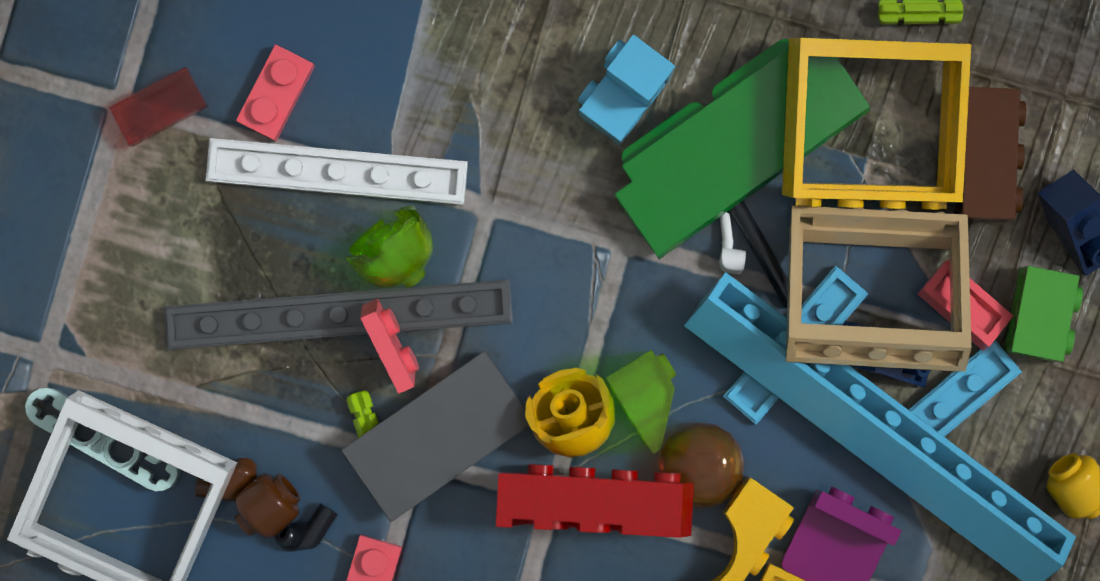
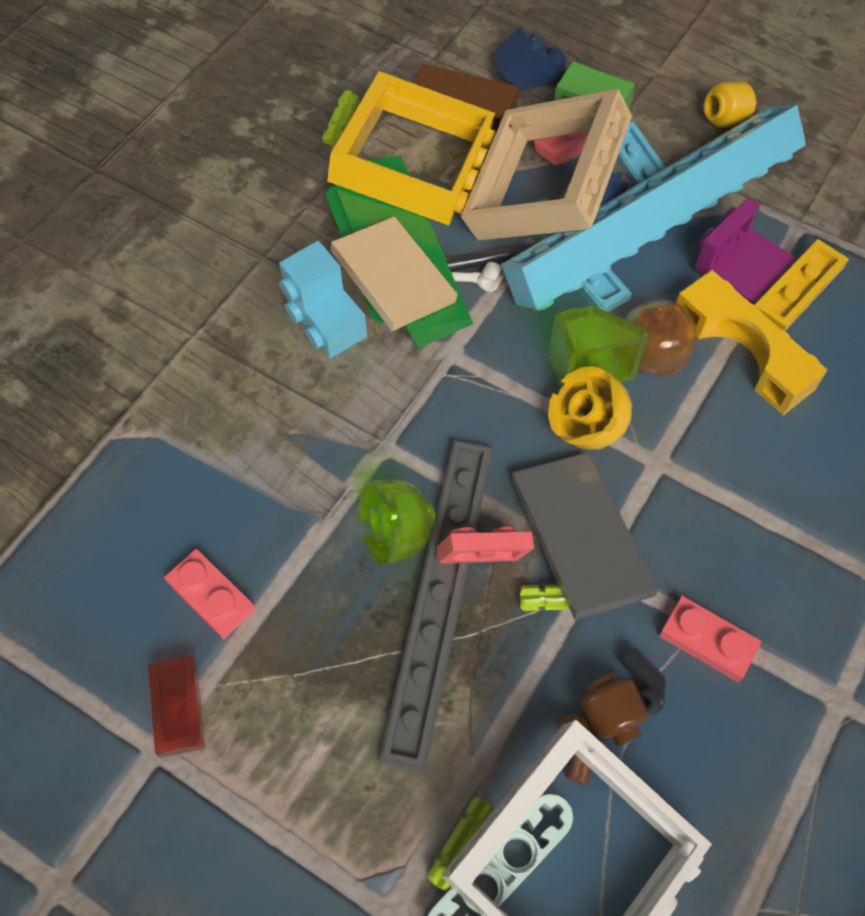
camera: 70 degrees left, 25 degrees down
(143, 407) = (476, 815): none -> lime axle
(336, 171) = (301, 566): white tile -> none
(595, 502) = (679, 404): red wedge -> none
(680, 155) = (393, 273): none -> tan tile

